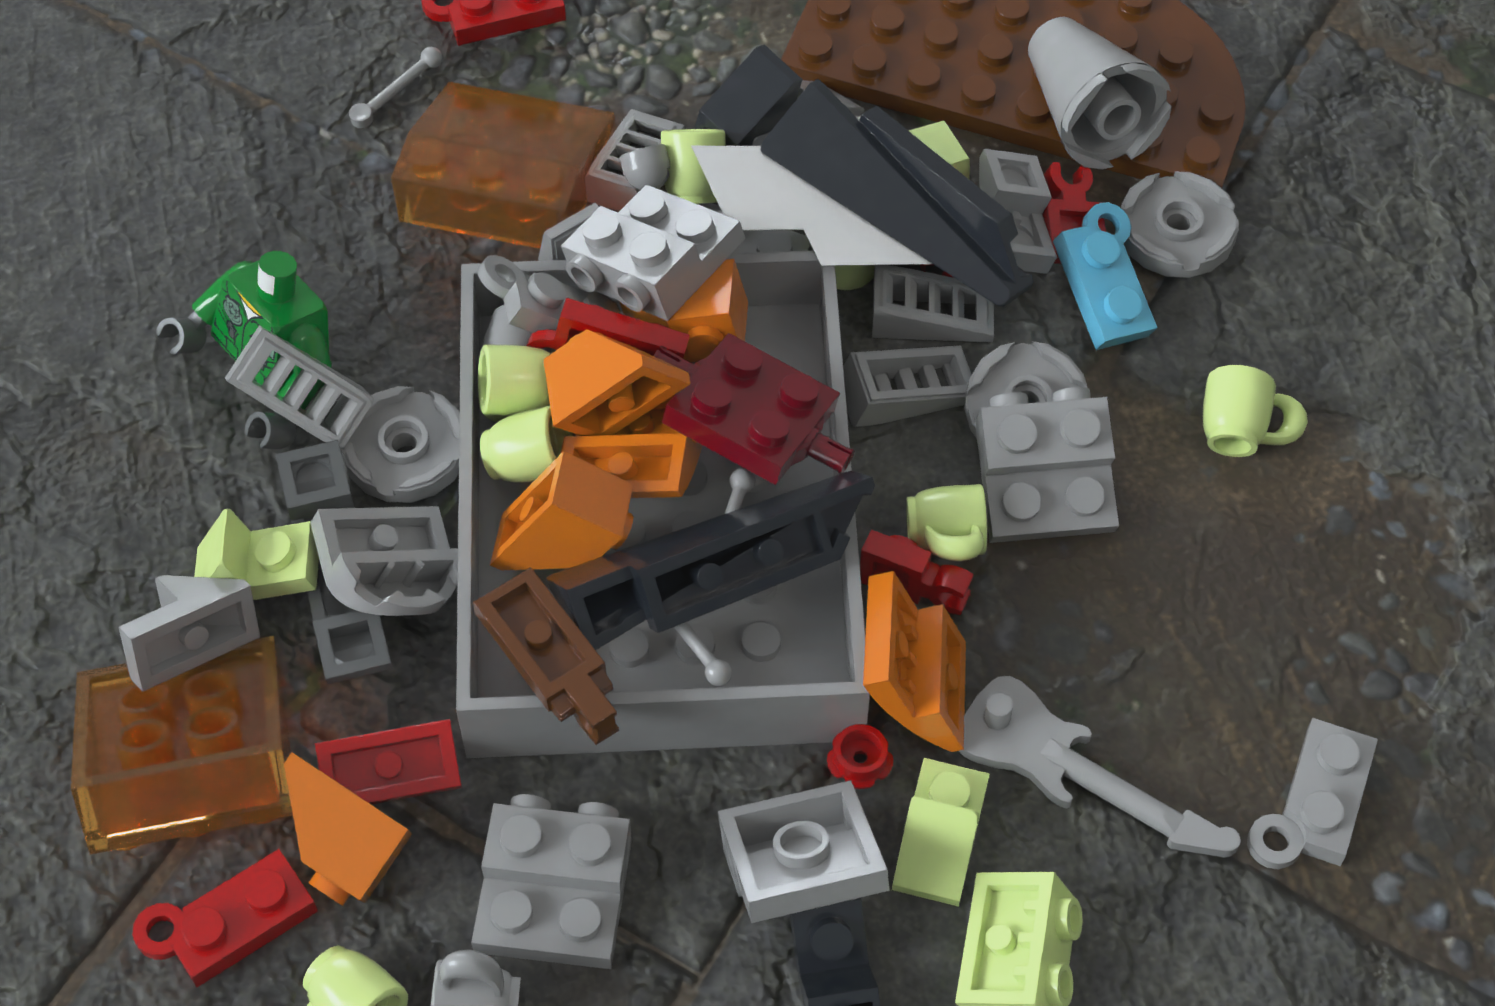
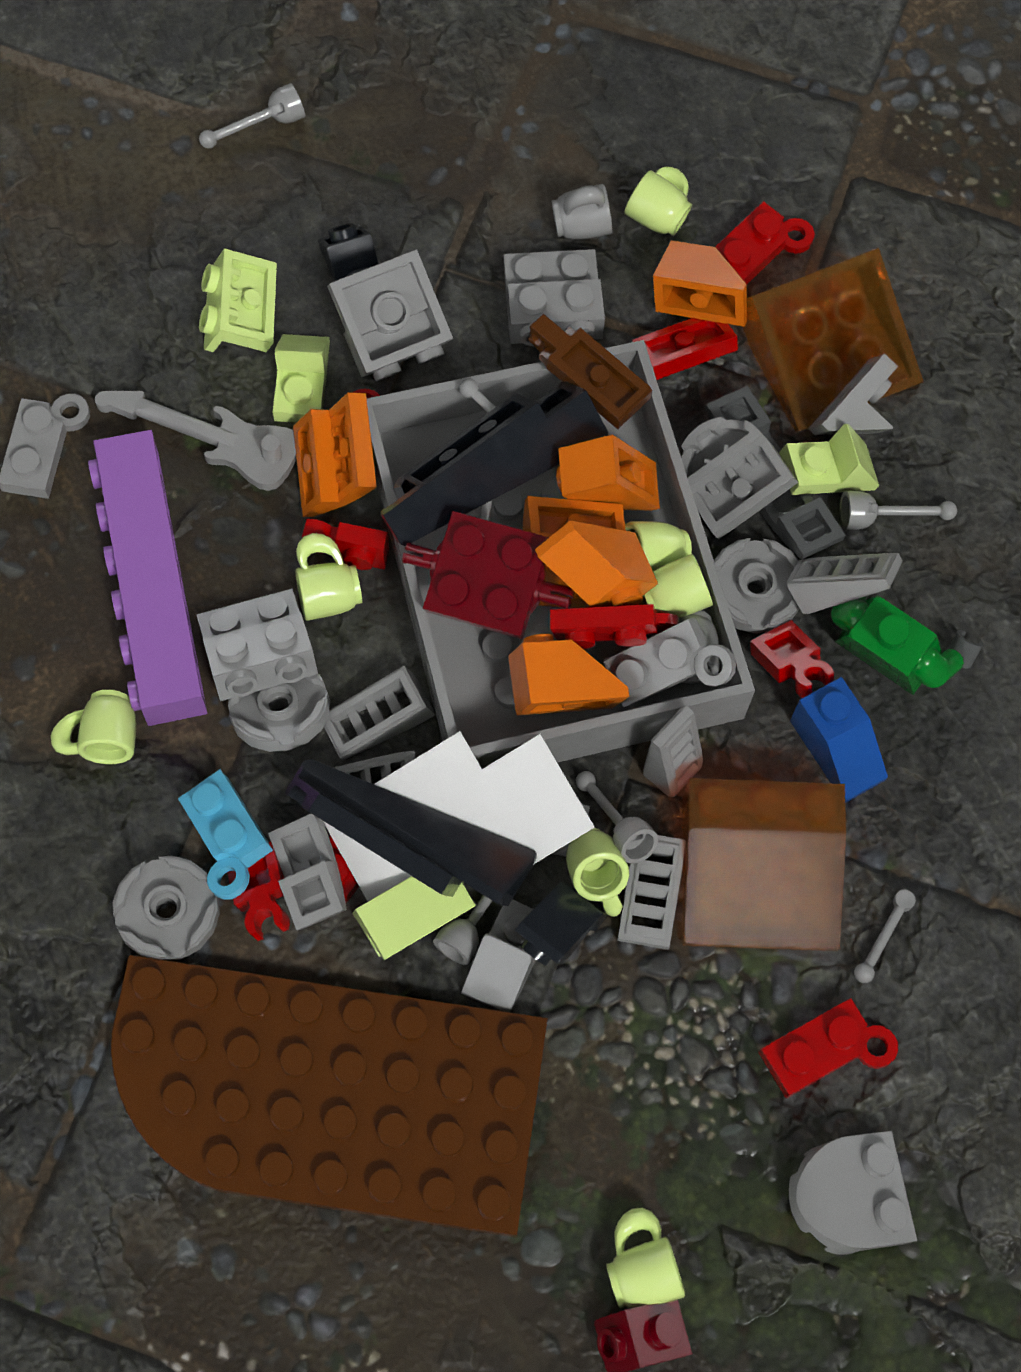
camera: 165 degrees right, 10 degrees up
(245, 502) = (860, 510): none -> light grey hinge
(374, 267) = (840, 738): none -> blue slope
(396, 349) = (791, 653): none -> red plate
(651, 251) = (600, 699): light grey plate -> none
(1097, 93) = (255, 994): light grey cone -> none
(1179, 584) = (148, 577): none -> medium lavender brick

